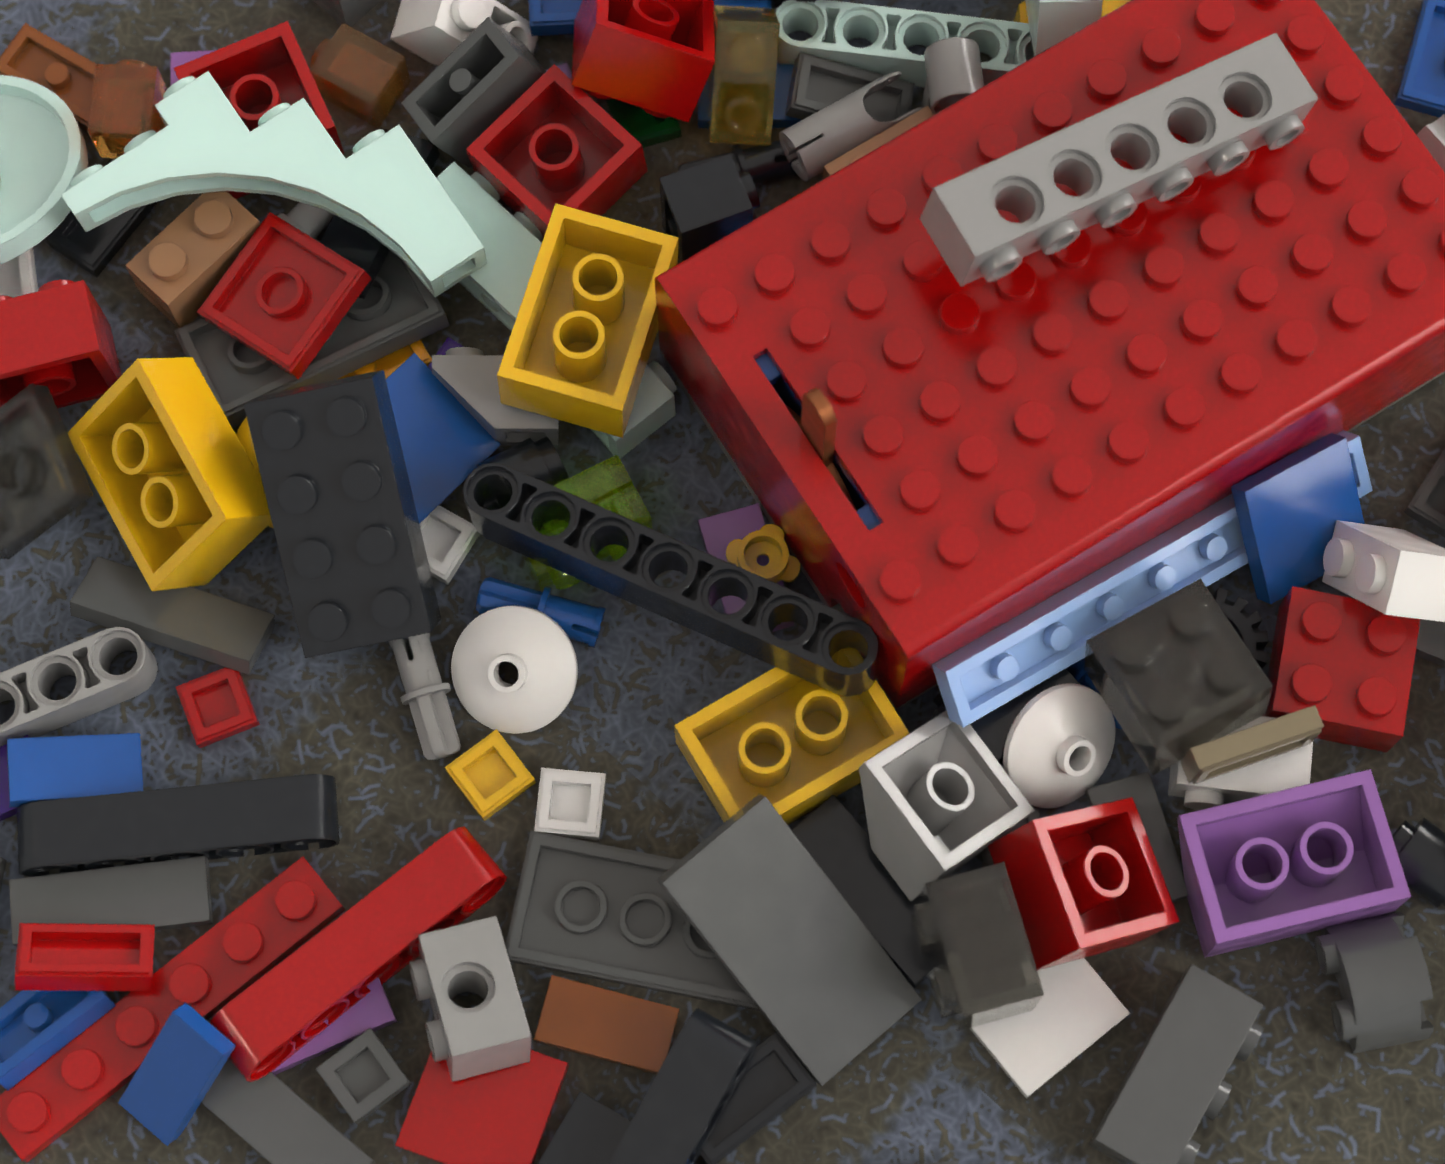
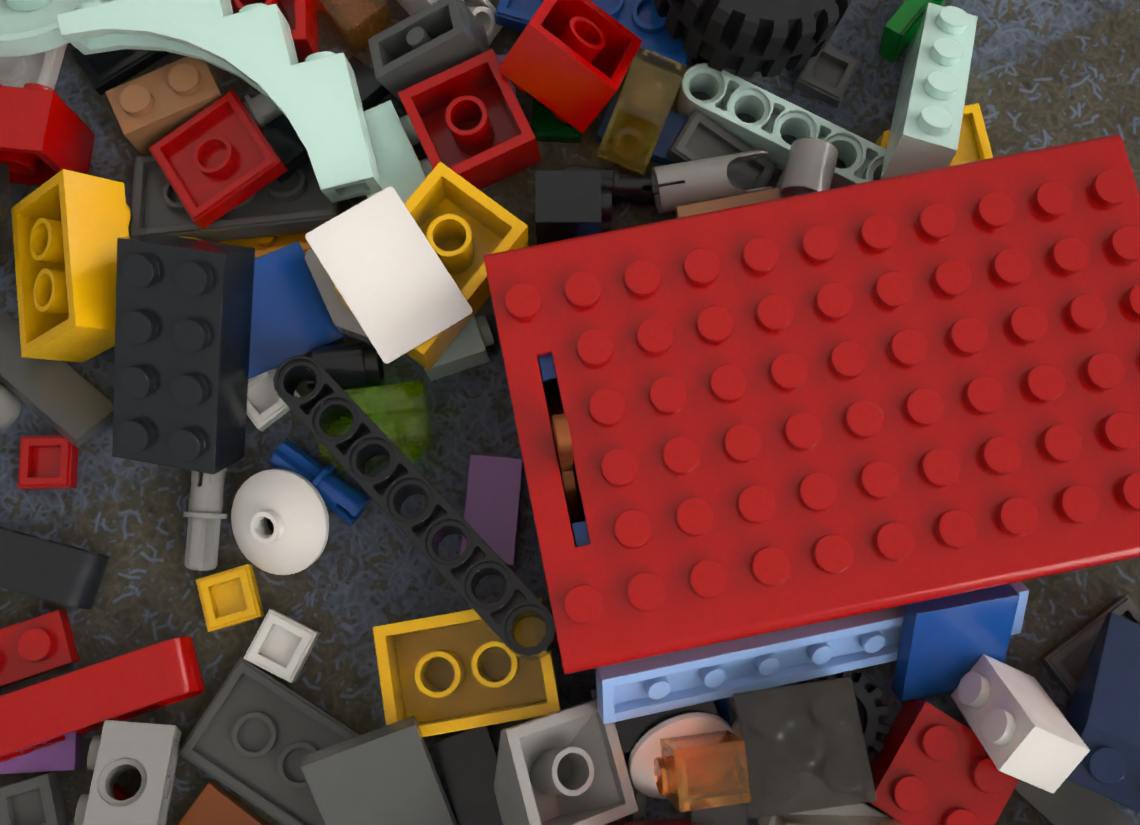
camera: 20 degrees right, 5 degrees up
(550, 340) = (388, 274): none -> white sticker
(767, 542) = (492, 500): yellow plate -> none
(1085, 731) = (703, 771): none -> clear orange brick
(1255, 81) = (1075, 275): light grey brick -> none

